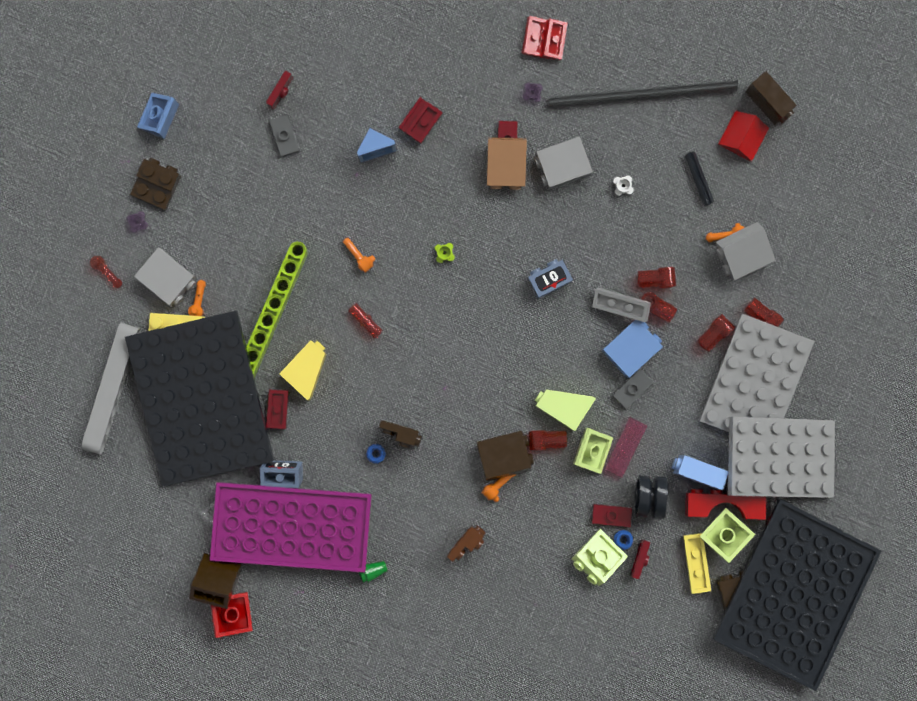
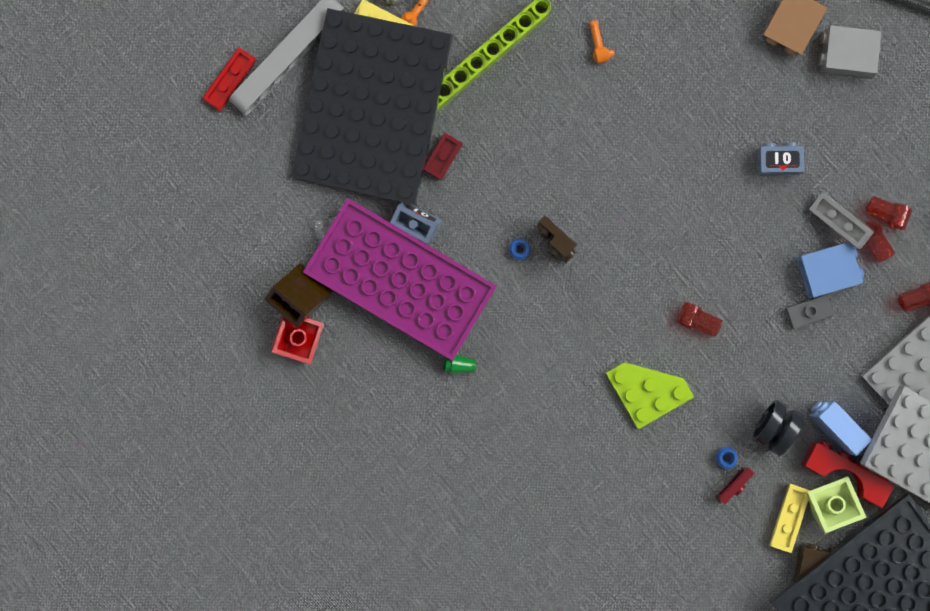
camera: 25 degrees right, 0 degrees up
(73, 431) = (229, 79): none -> red tile
(305, 369) = (490, 129): light yellow slope -> none
(365, 320) = (574, 111): clear red pin -> none
(440, 249) = (691, 79): lime plate -> none
(471, 540) = (573, 381): reddish brown plate -> none
(491, 491) = (617, 343): orange piece -> none
(505, 455) = (649, 314): dark brown brick -> none
(534, 518) = (647, 392): none -> lime plate
(564, 406) = (733, 295): yellowish green slope -> none
(593, 450) = (739, 353): yellowish green slope -> none
(599, 558) = (693, 464): yellowish green plate -> none
(611, 515) = (726, 427): dark red plate -> none
(626, 447) = (774, 366): clear pink plate -> none
(628, 185) = (905, 103): white plate -> none

